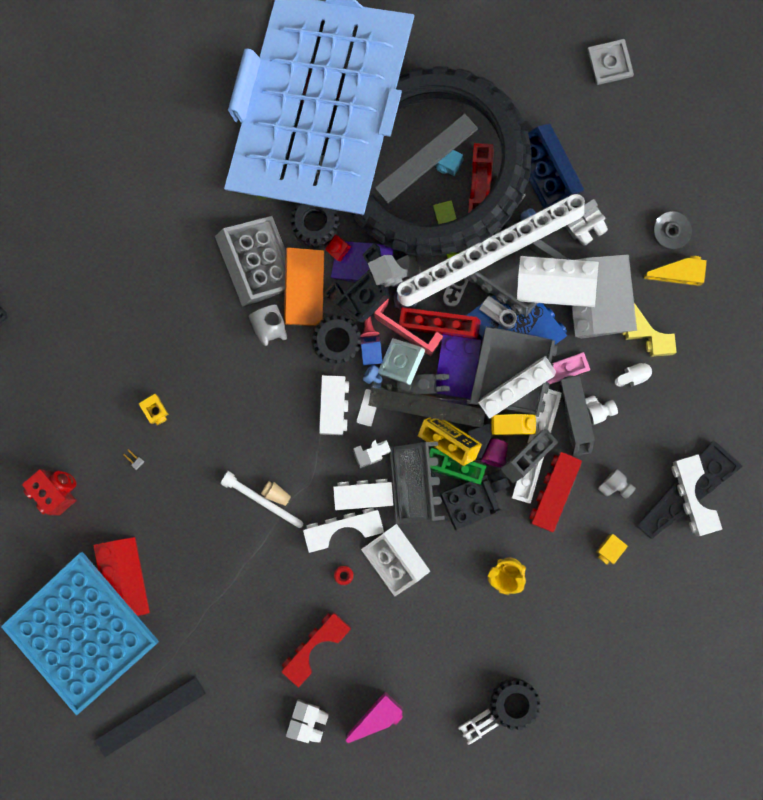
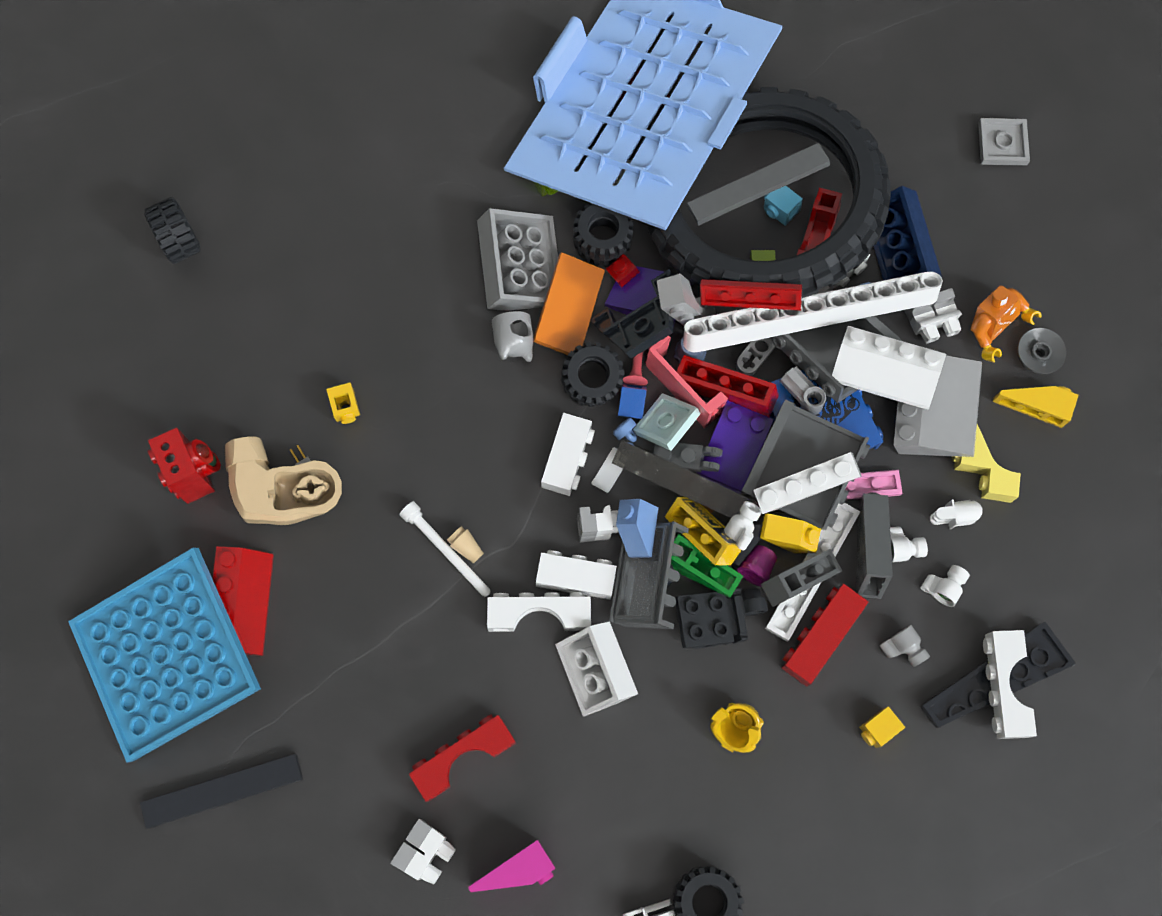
camera: 15 degrees right, 10 degrees down
(127, 492) = (280, 493): none -> tan piece
(339, 580) = (520, 664): red plate -> none
(399, 451) = (637, 526): none -> medium blue slope
(441, 252) = (751, 294): none -> red tile
(476, 431) = (741, 525): none -> white piece
(632, 210) = (996, 314): none -> orange torso
(637, 435) = (946, 589): none -> white piece

